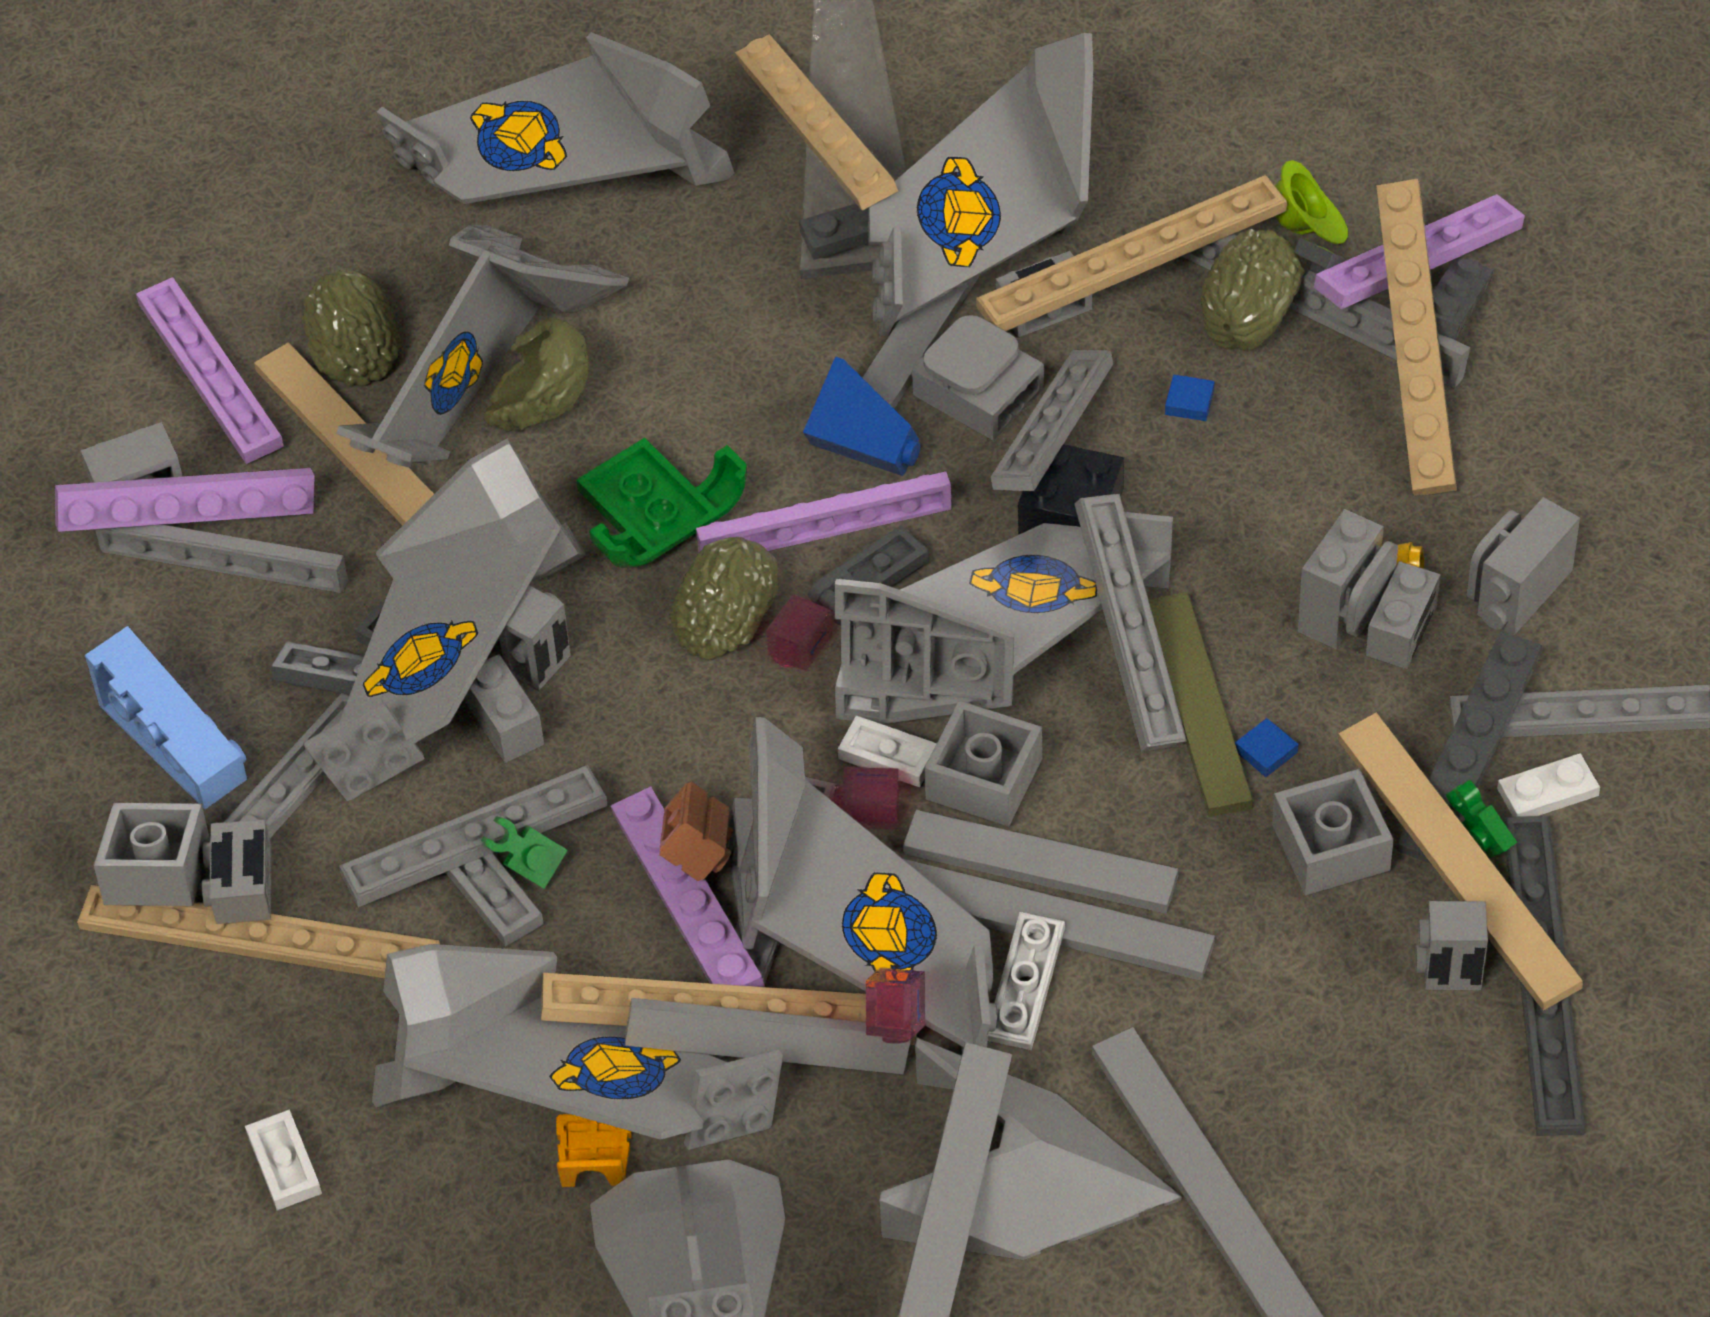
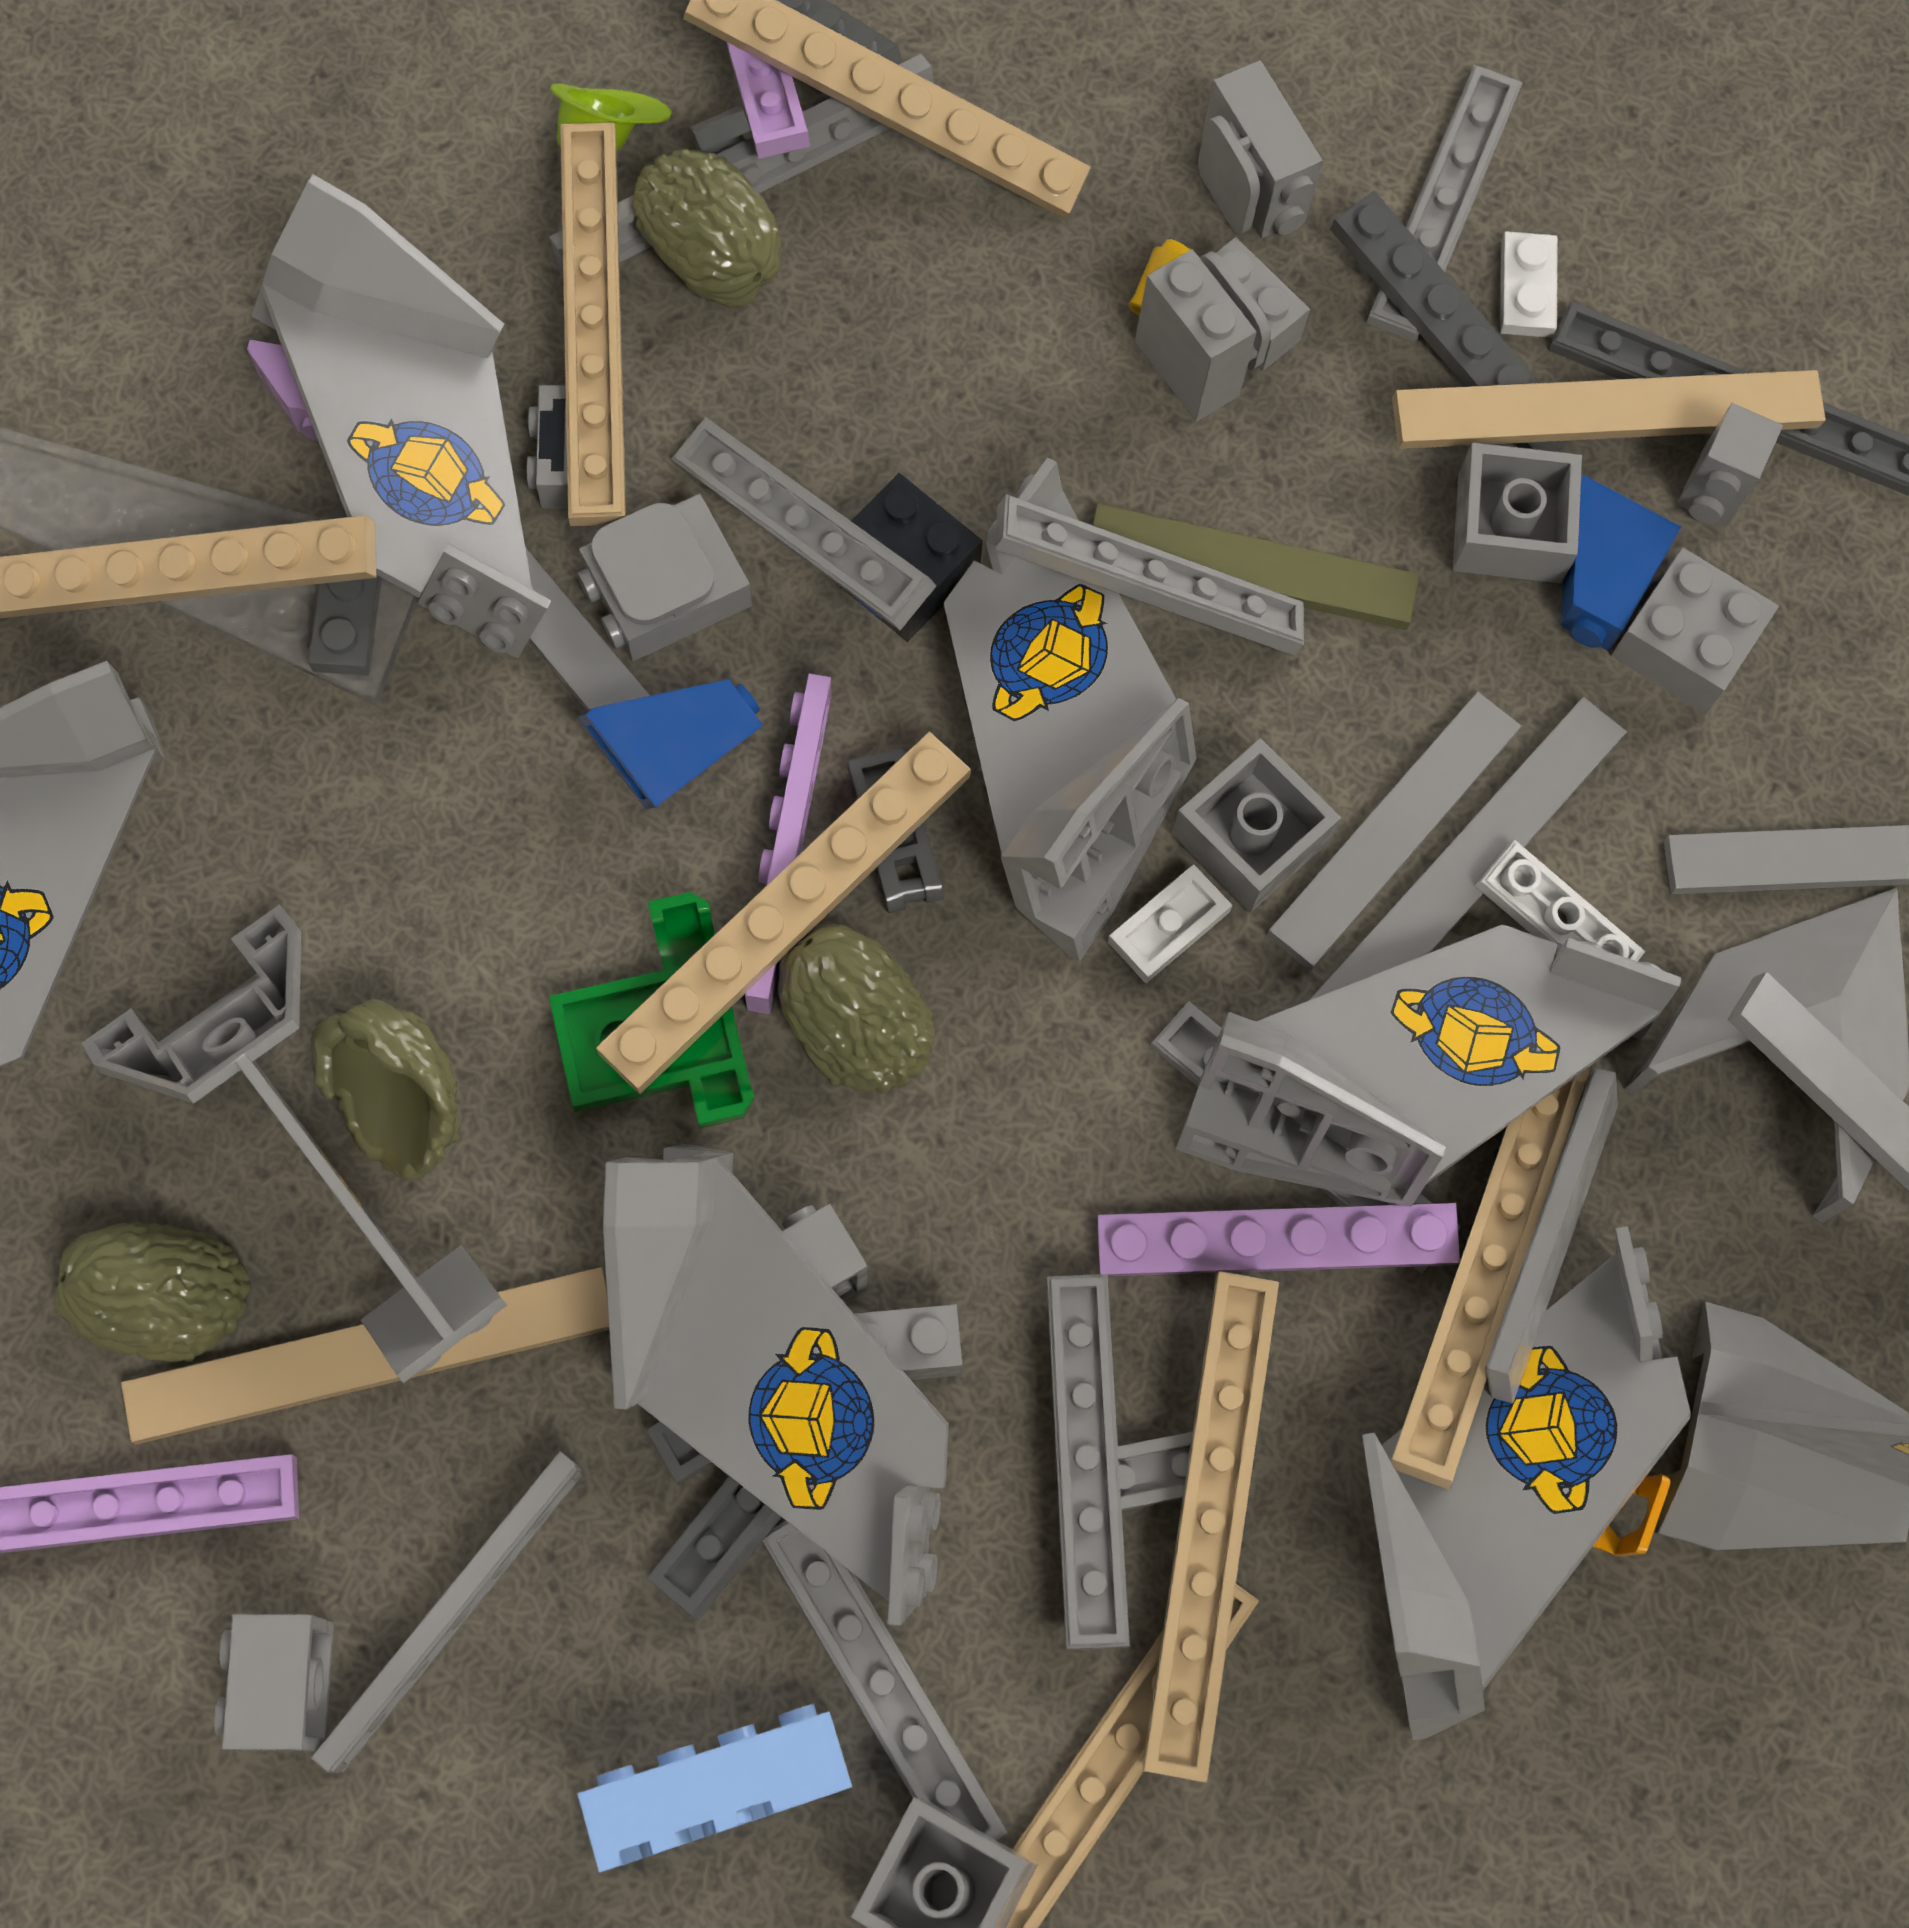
camera: 75 degrees left, 20 degrees up
(184, 499) = (358, 1636): lavender plate -> none
(238, 871) = (1015, 1783): brick -> none
(283, 1160) = (1458, 1886): white plate -> none
(461, 914) = (1210, 1528): none -> tan plate
(530, 853) = (1145, 1406): green plate -> none
(695, 832) = (1219, 1191): nougat brick -> none
(766, 522) = (783, 913): none -> tan plate
(799, 633) = (952, 947): clear pink brick -> none
(870, 796) = (1234, 972): clear pink brick -> none
(895, 1004) = (1606, 1068): clear pink brick -> none
(1189, 397) = (808, 370): blue tile -> none
(1266, 747) = (1347, 526): blue tile -> none
(1307, 981) = (1695, 631): none -> light grey brick
(1331, 911) = (1614, 564): none -> blue slope
(1481, 821) = (1578, 362): green plate -> none

